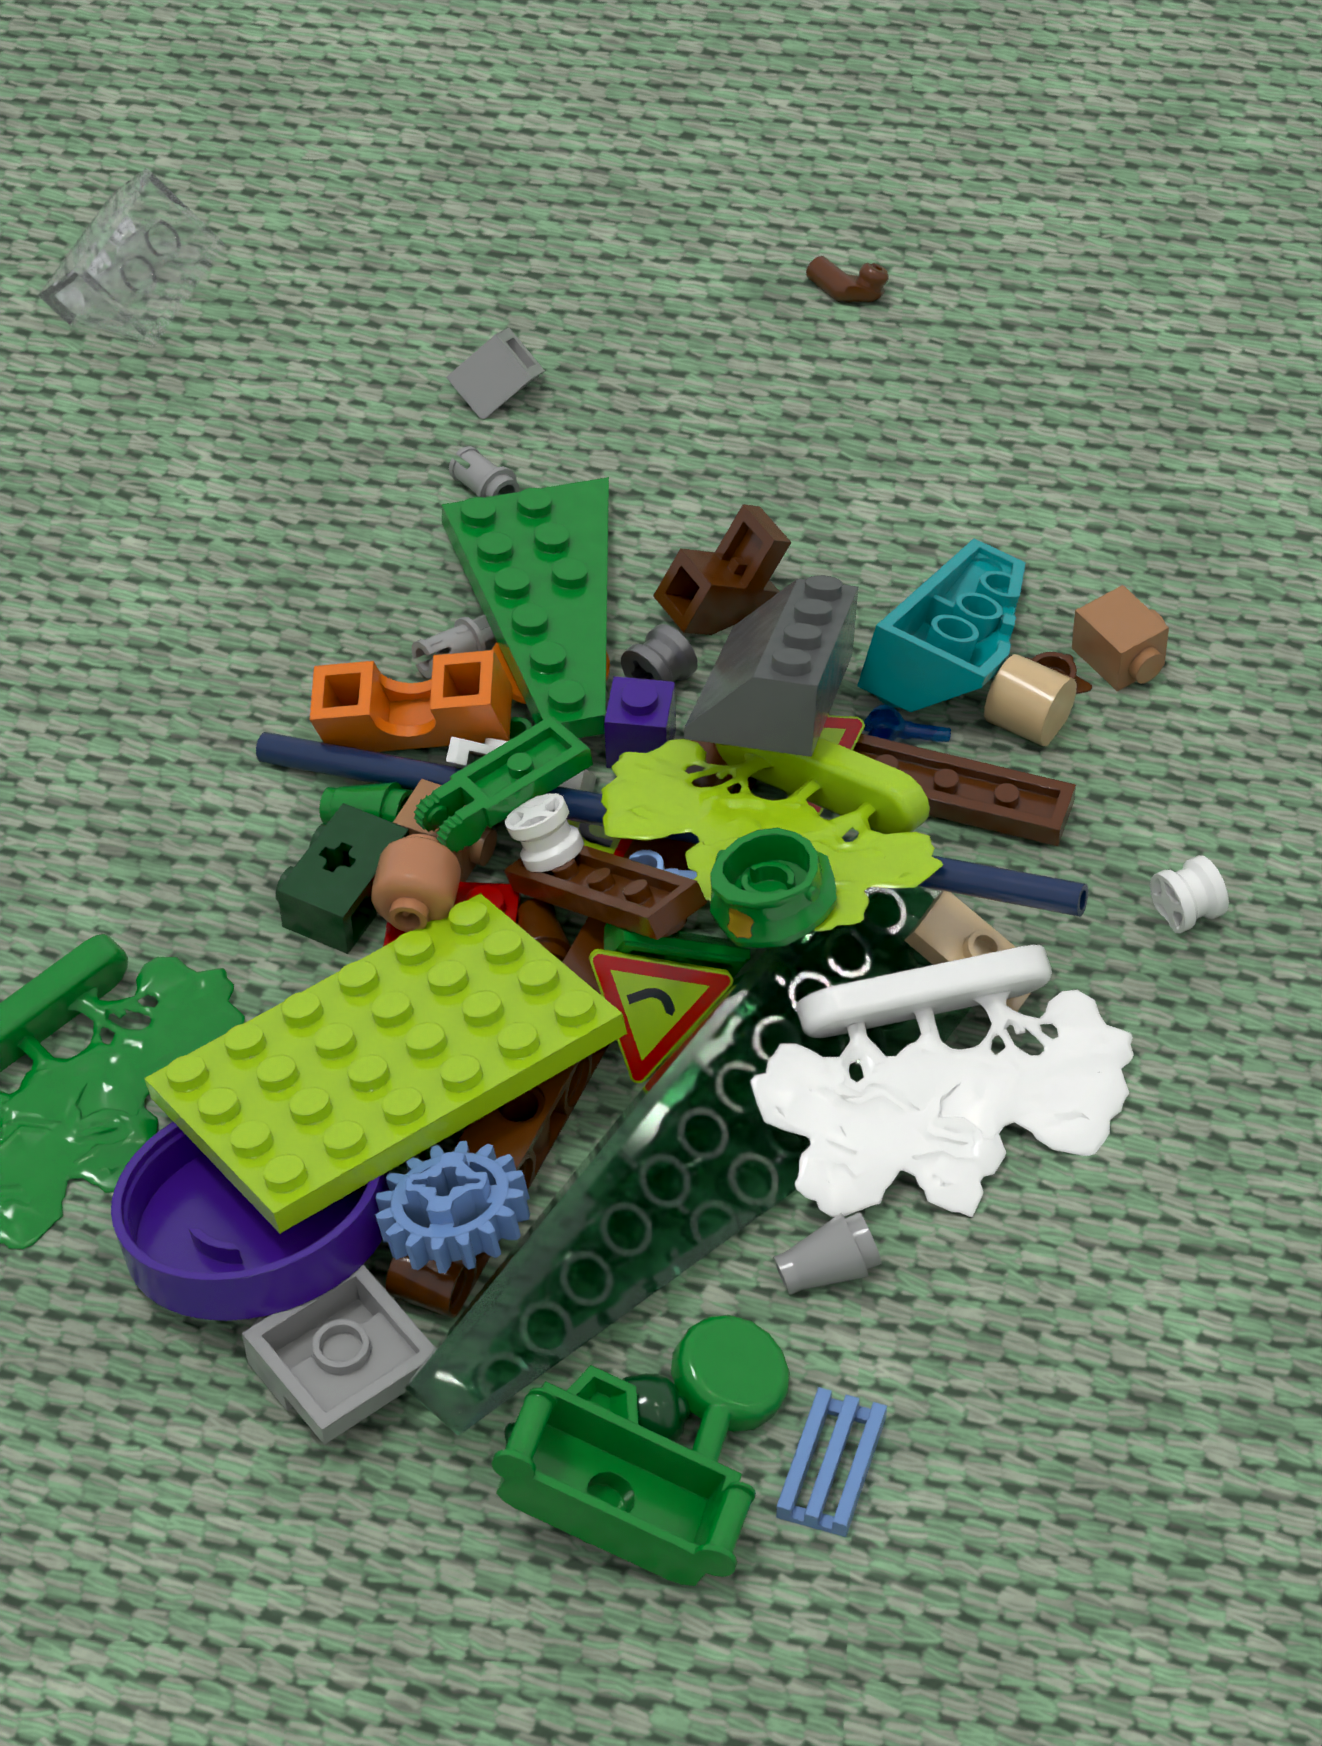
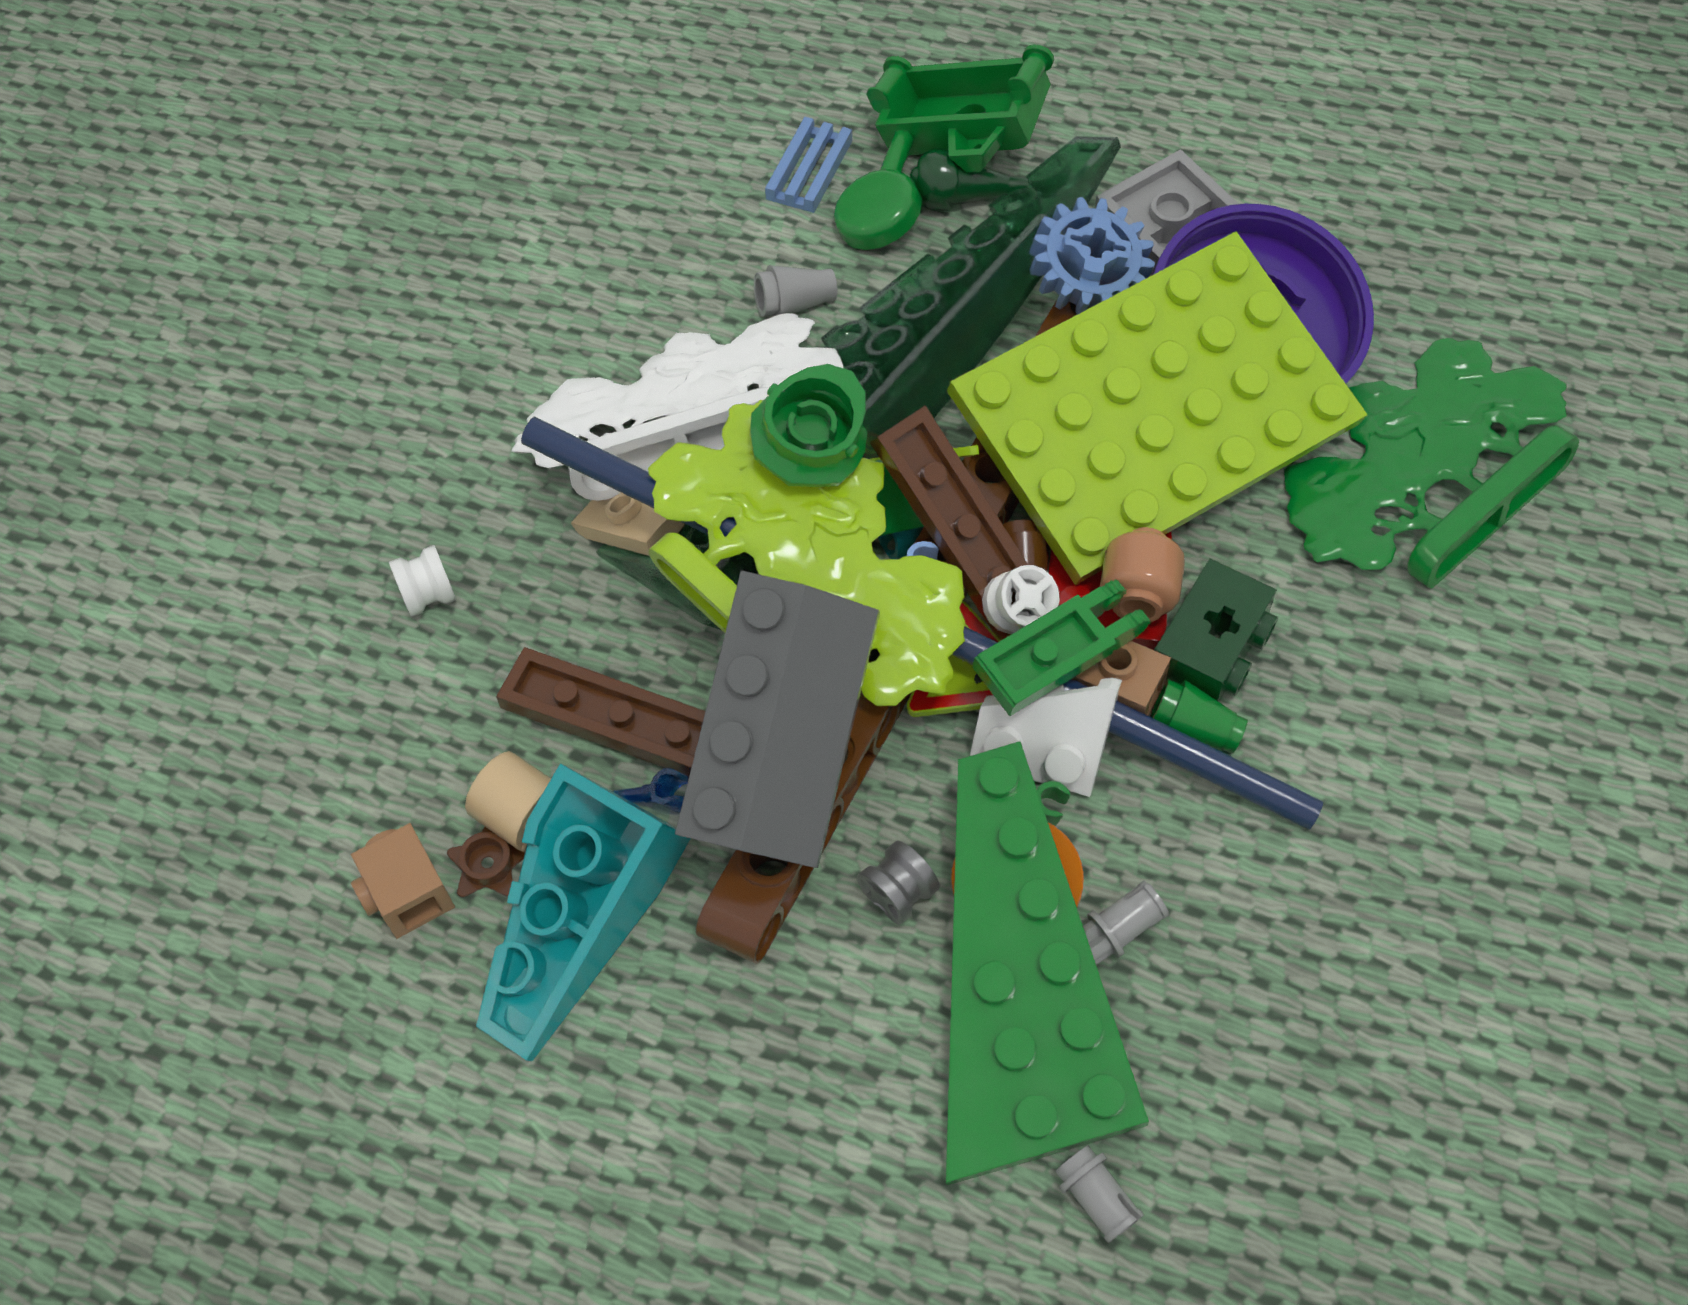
camera: 175 degrees left, 10 degrees up
(373, 713) = (1209, 817): orange arch -> none
(638, 716) = (921, 788): dark purple brick -> none
(722, 587) = (820, 982): reddish brown brick -> none

